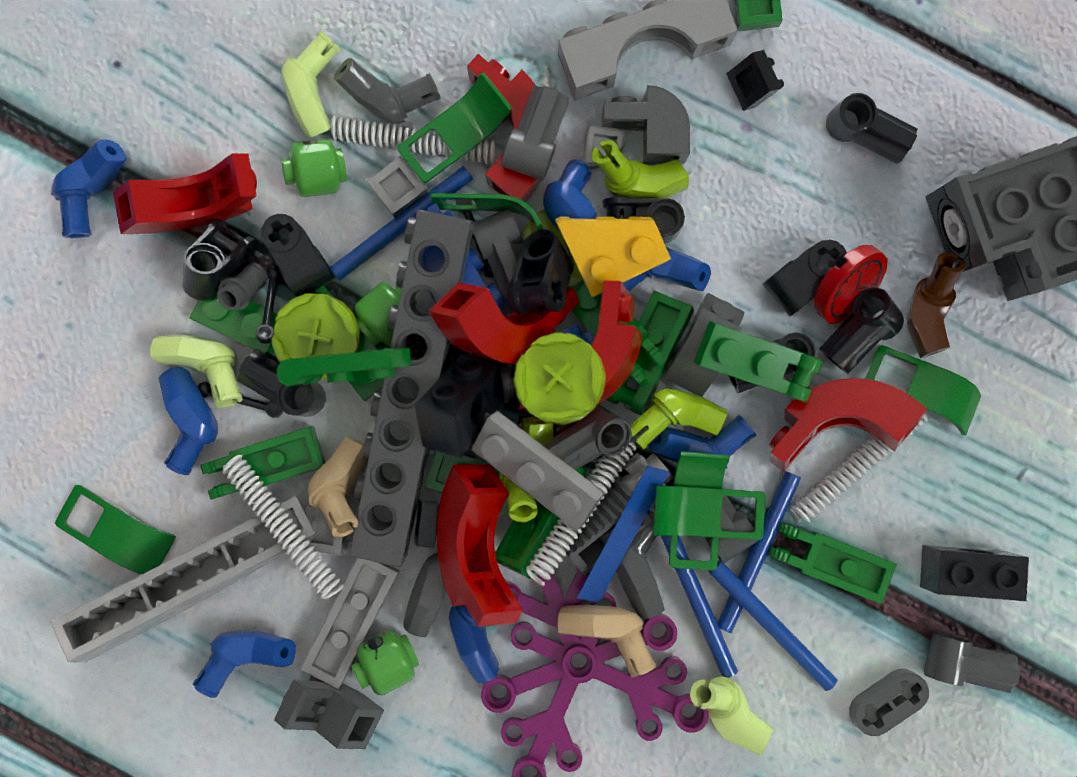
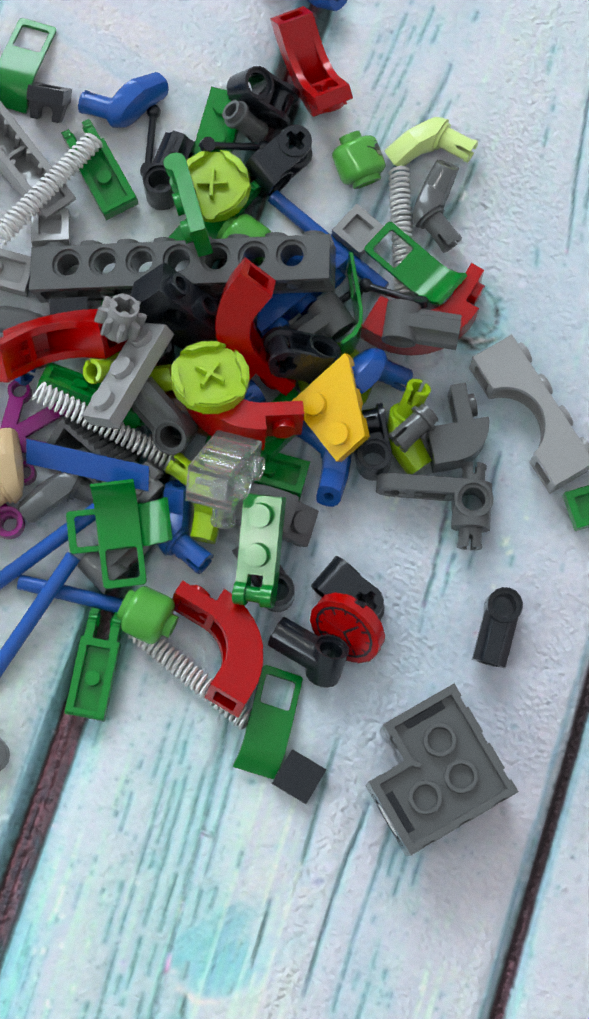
camera: 80 degrees right, 10 degrees down
(161, 506) = (48, 95): none -> black tile
(206, 356) = (181, 105): yellowish green arm -> none
(334, 483) = (87, 223): tan arm -> none
(483, 476) = (120, 318): none -> light grey gear
(501, 133) = (366, 285): none -> black hinge
(595, 135) = (438, 398): light grey tile -> none
(646, 164) = (413, 427): none -> dark grey pin
(674, 382) = (224, 475): none -> clear brick
(754, 80) = (517, 514): black tile -> none
(754, 133) = (468, 522): none -> dark grey piece
(799, 496) = (147, 615): none -> bright green head
(932, 303) = (344, 711): reddish brown arm -> none
(961, 662) = (23, 793): dark grey piece -> none
(974, 573) = (106, 790): black brick -> none
(987, 367) = (299, 776): none -> black tile

